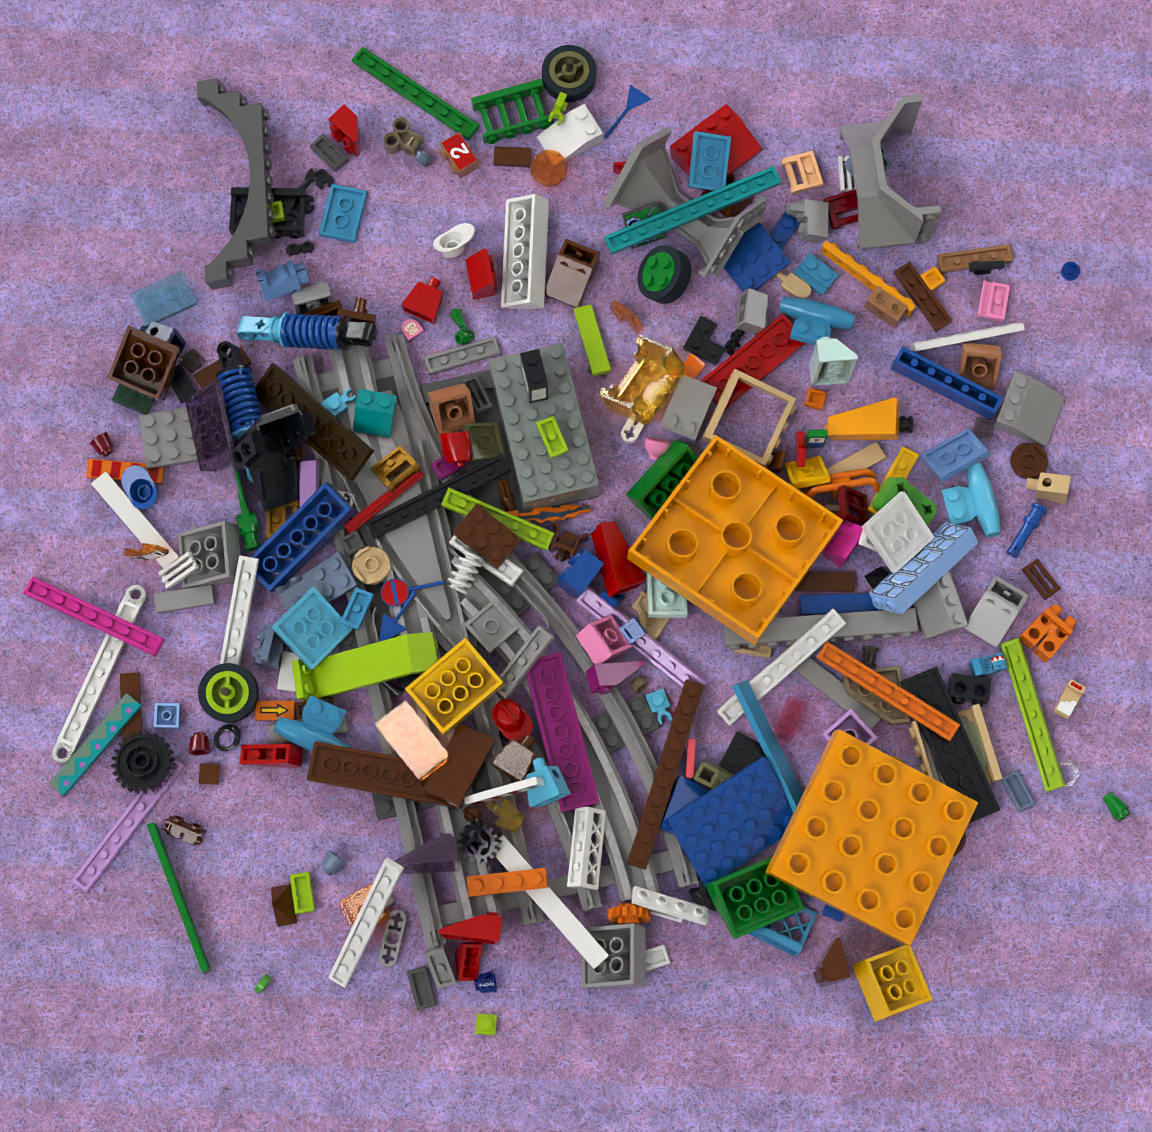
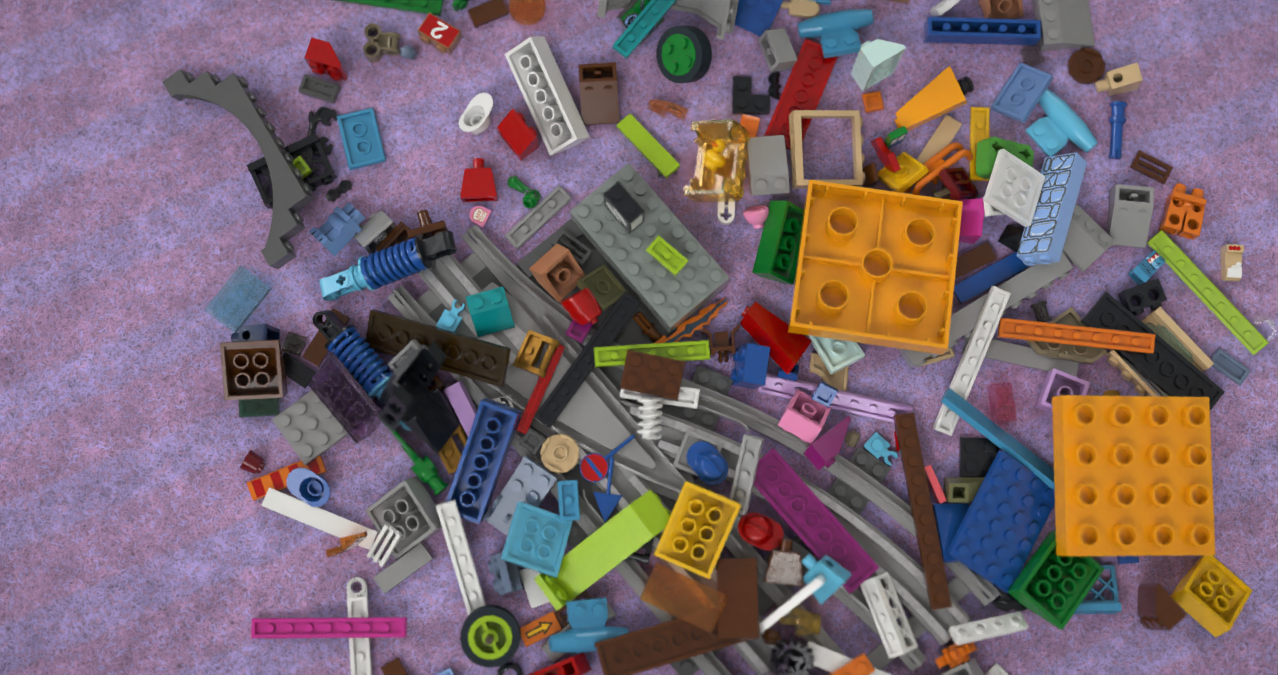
camera: 25 degrees left, 5 degrees up
(495, 637) = (707, 463): none -> blue piece
(642, 378) = (712, 158): none -> yellow animal

